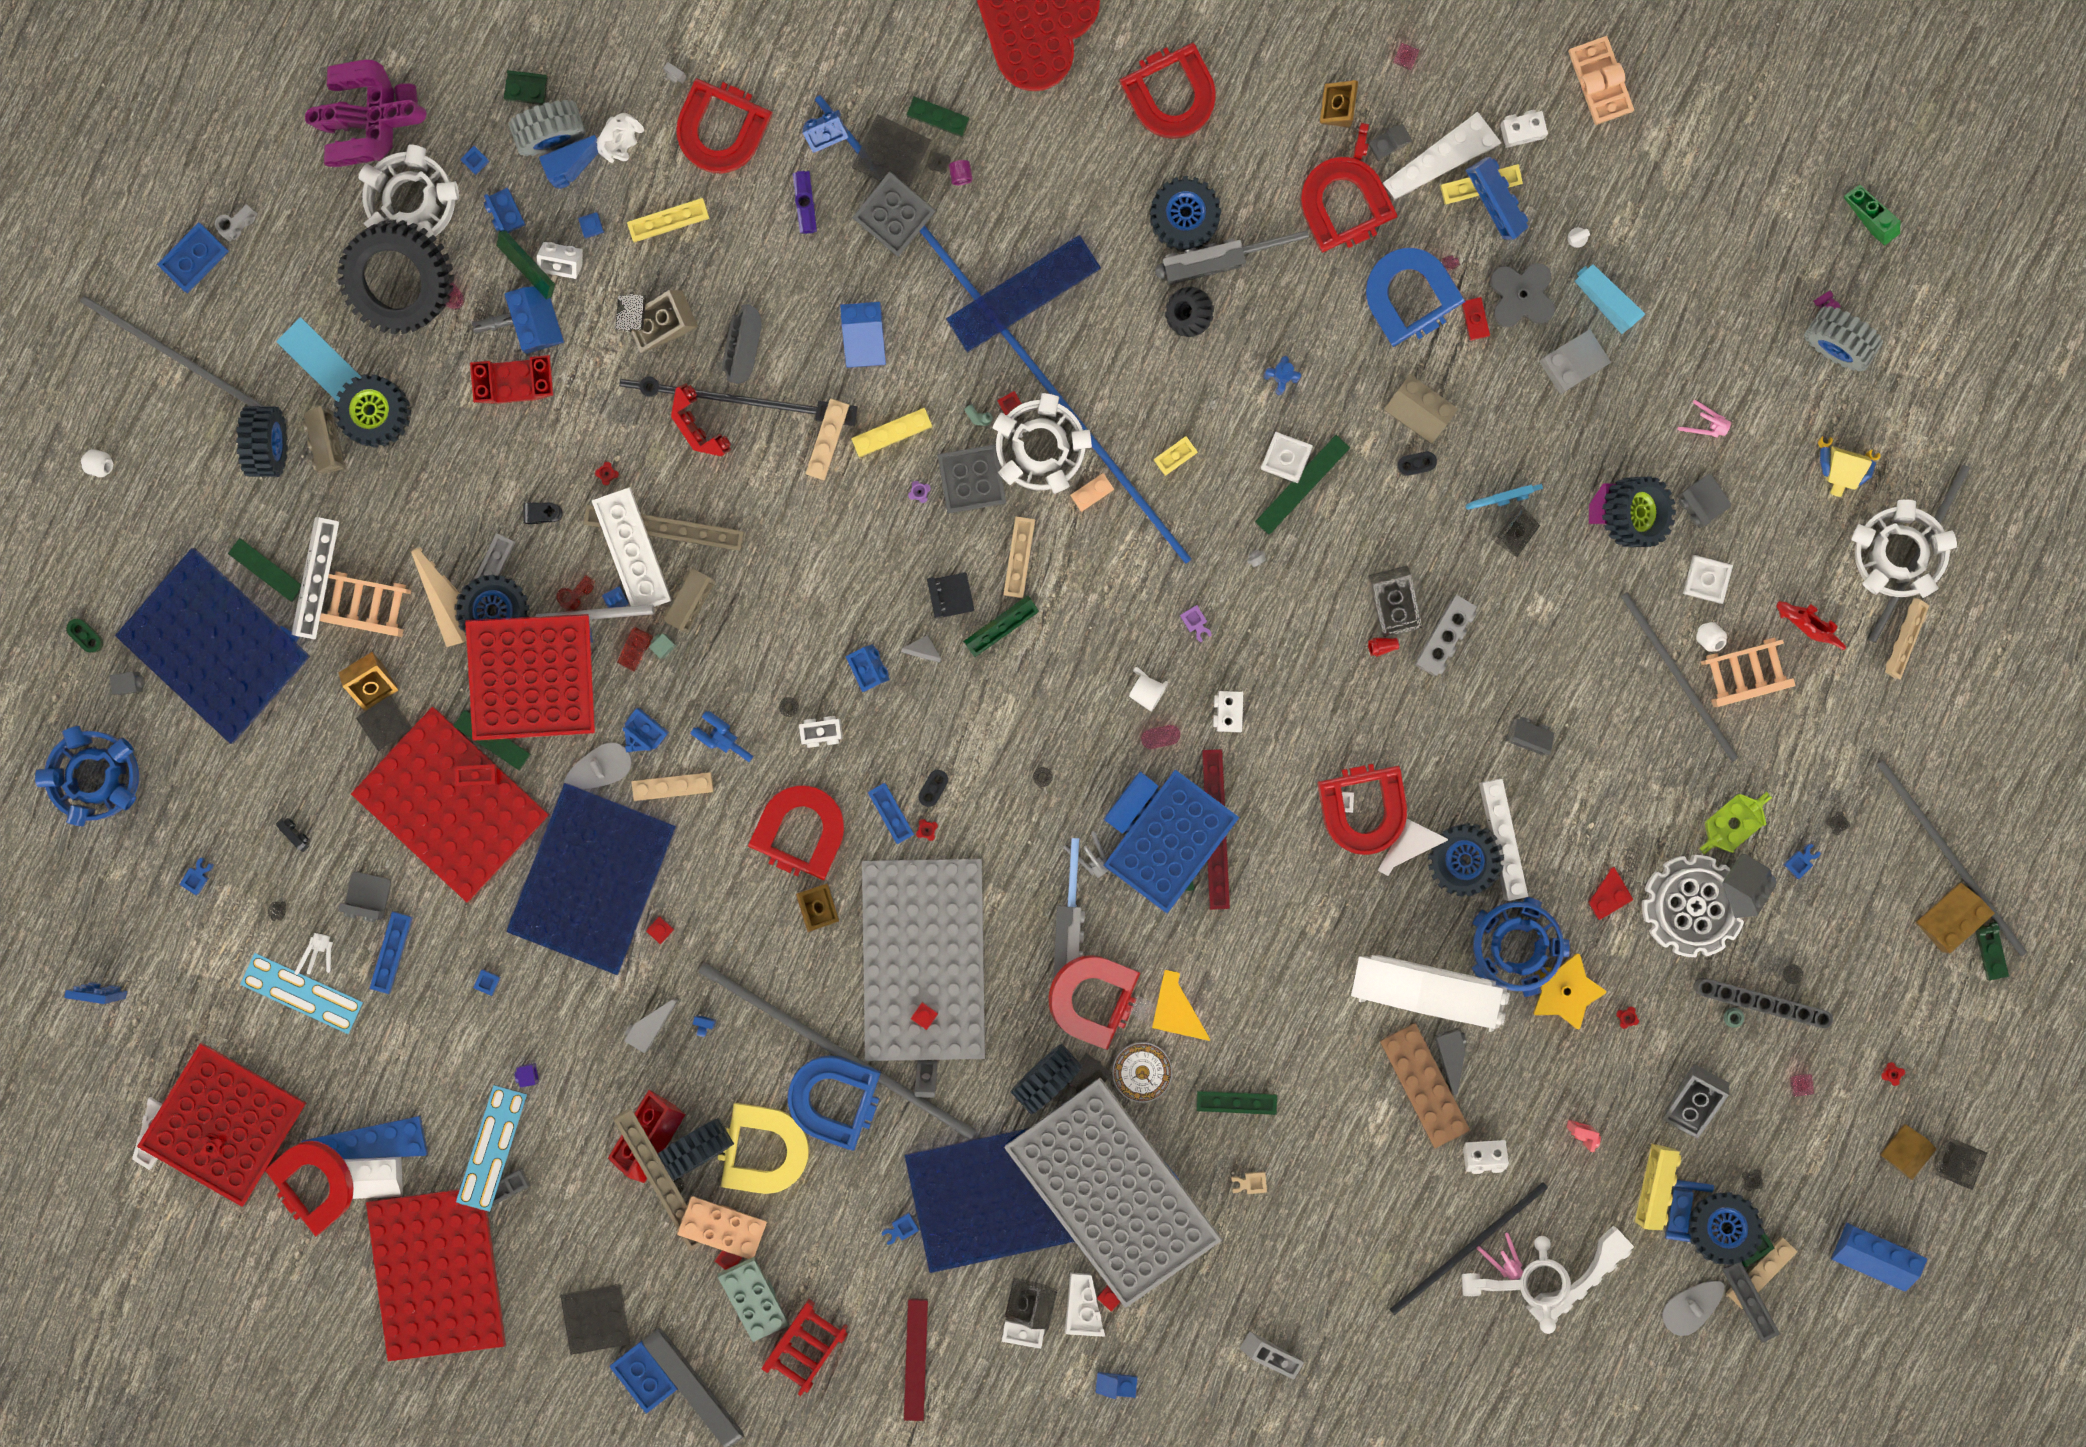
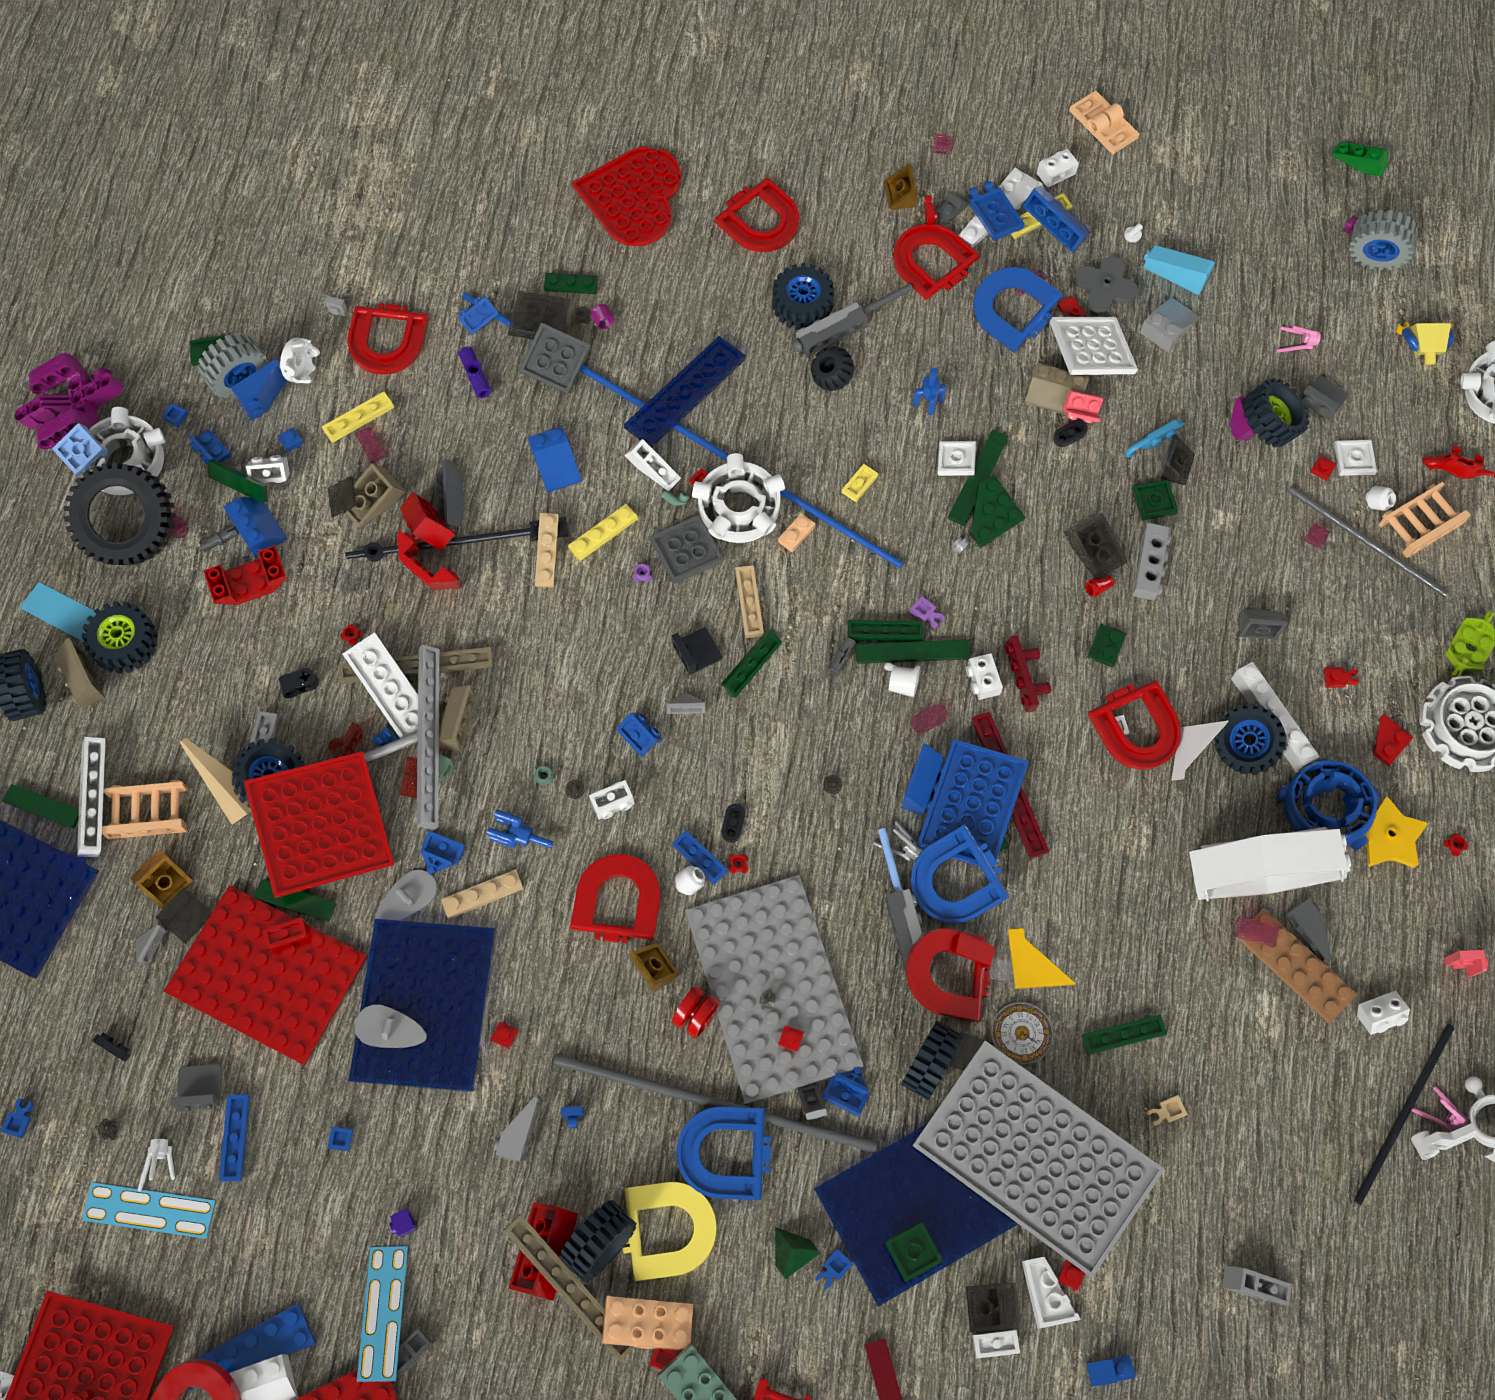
camera: 20 degrees left, 20 degrees down
(343, 742) = (148, 943): none -> light grey slope
(367, 187) = (79, 449): none -> light blue piece
(552, 893) = (387, 1028): none -> light grey shield
(657, 614) = (428, 738): none -> light grey plate
(675, 257) = (371, 445): none -> clear pink plate
(707, 372) = (423, 521): none -> red wedge
(756, 680) = (543, 770): none -> sand green plate
(843, 966) = (695, 1011): none -> red wheel
(869, 1203) = (792, 1252): none -> dark green slope
(874, 834) = (690, 880): none -> white head
(913, 974) = (767, 999): none -> clear smoke plate
(963, 1076) = (847, 1091): none -> blue slope
(964, 371) = (652, 465): none -> white slope
(975, 1238) = (913, 1251): none -> dark green plate
(1094, 644) = (841, 656): none -> dark grey pin
(1122, 984) = (973, 949): none -> red tile
(1129, 941) = (941, 851): none -> blue piece
(1147, 630) = (885, 630): none -> dark green plate
(1168, 660) = (913, 651): none -> dark green tile
(1267, 726) = (1023, 679): none -> dark red plate
(1303, 531) = (993, 512): none -> dark green plate
(1366, 711) = (1106, 645): none -> dark green plate
(1397, 1046) = (1256, 931): none -> clear pink plate
(1432, 167) = (995, 211): none -> blue tile
(1439, 440) = (1082, 406): none -> coral bracket
(1476, 566) = (1154, 500): none -> dark green plate
(1477, 370) = (1093, 345): none -> white plate
(1585, 815) = (1337, 677): none -> red plate
(1629, 656) = (1316, 536): none -> clear pink plate
(1669, 581) = (1323, 467): none -> red plate

